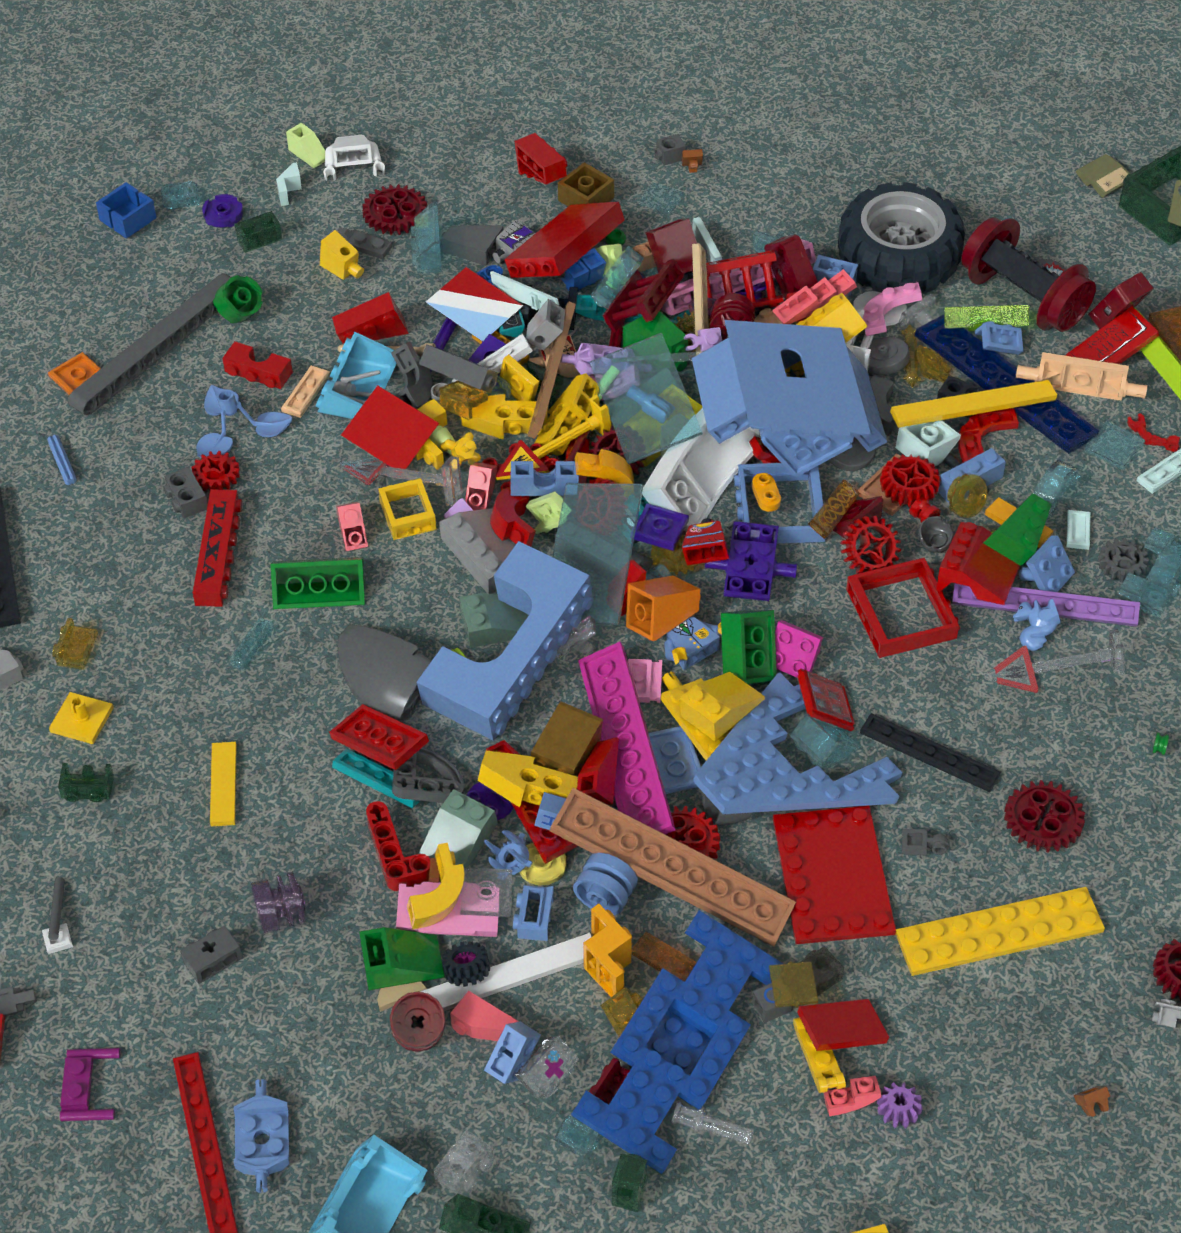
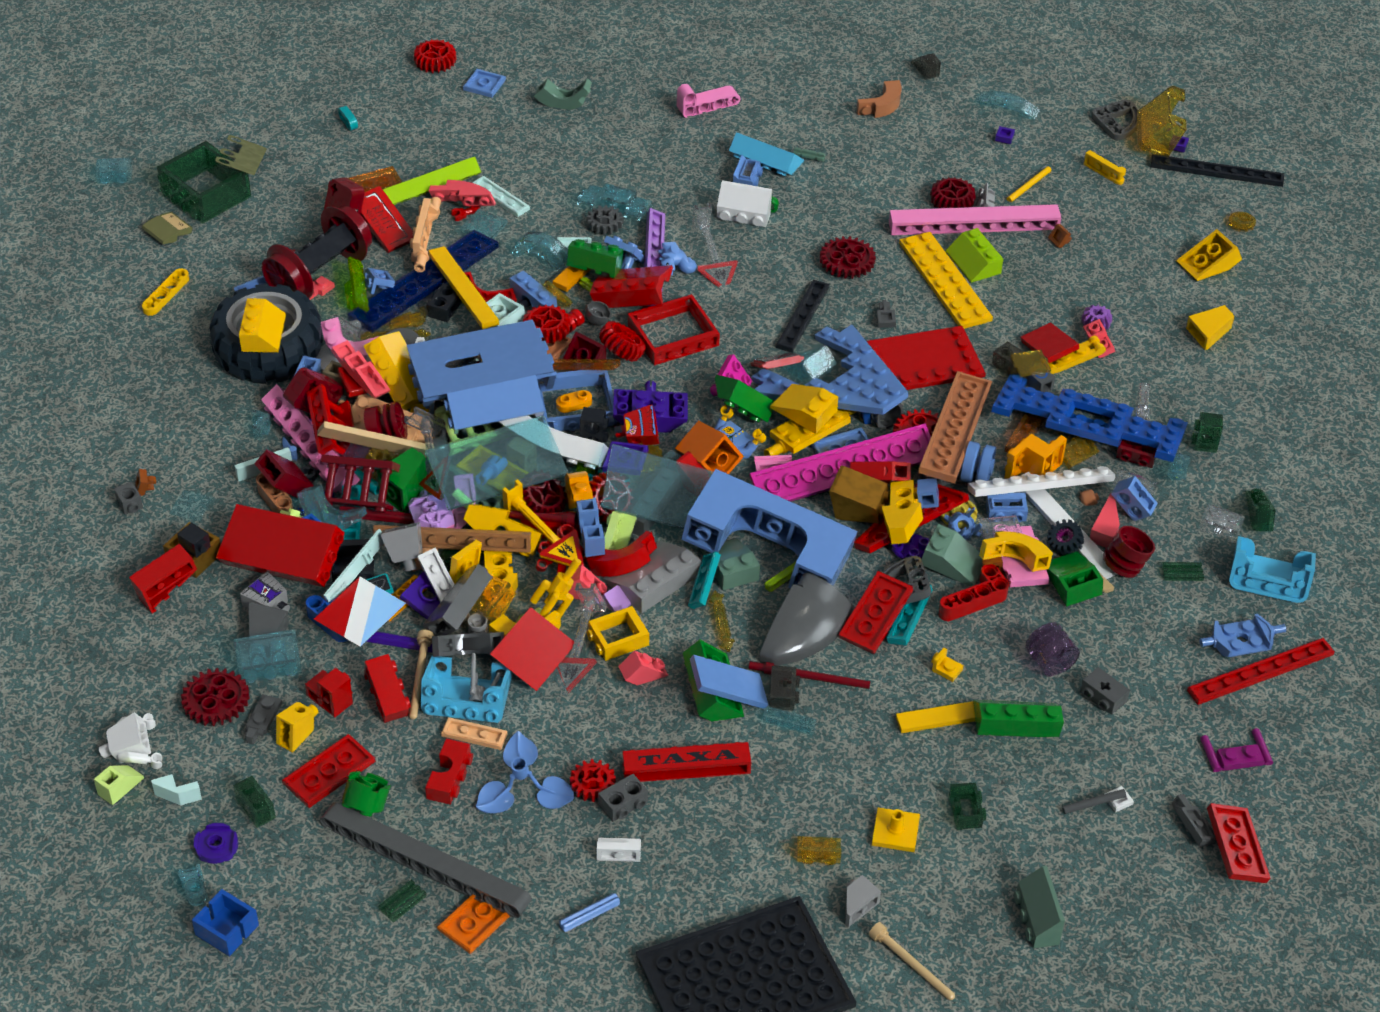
camera: 100 degrees left, 5 degrees down
(113, 321) = (421, 894): none -> clear green tile
(127, 486) = (618, 849): none -> white panel
(197, 854) = (1018, 718): none -> green slope
(288, 287) = (328, 770): none -> red tile
(294, 802) = (946, 666): none -> yellow bracket
(295, 641) = (783, 688): none -> clear smoke brick
(301, 582) = (728, 681): none -> medium blue tile
(330, 638) = (767, 668): none -> dark red bar
(375, 280) = (330, 691): none -> red brick
(396, 1079) = (1186, 571): none -> clear green tile
(410, 603) = (721, 621): none -> clear yellow wheel
(462, 584) = (704, 580): none -> teal tile
(546, 1019) = (1089, 497): none -> nougat piece
(568, 958) = (1039, 482): none -> white plate
(578, 176) = (194, 540): none -> black brick
(706, 339) = (416, 435): lavender plate -> none
(721, 503) = (594, 424): none -> black brick
(875, 210) = (261, 326): none -> yellow slope
(974, 167) = (150, 308): none -> yellow beam
(996, 295) = (322, 286): none -> coral plate
(1045, 975) = (975, 256): none -> lime slope
(1129, 992) = (965, 219): none -> bright pink brick
(1145, 706) = (744, 203): none -> white slope
(1161, 420) = (466, 192): none -> coral slope

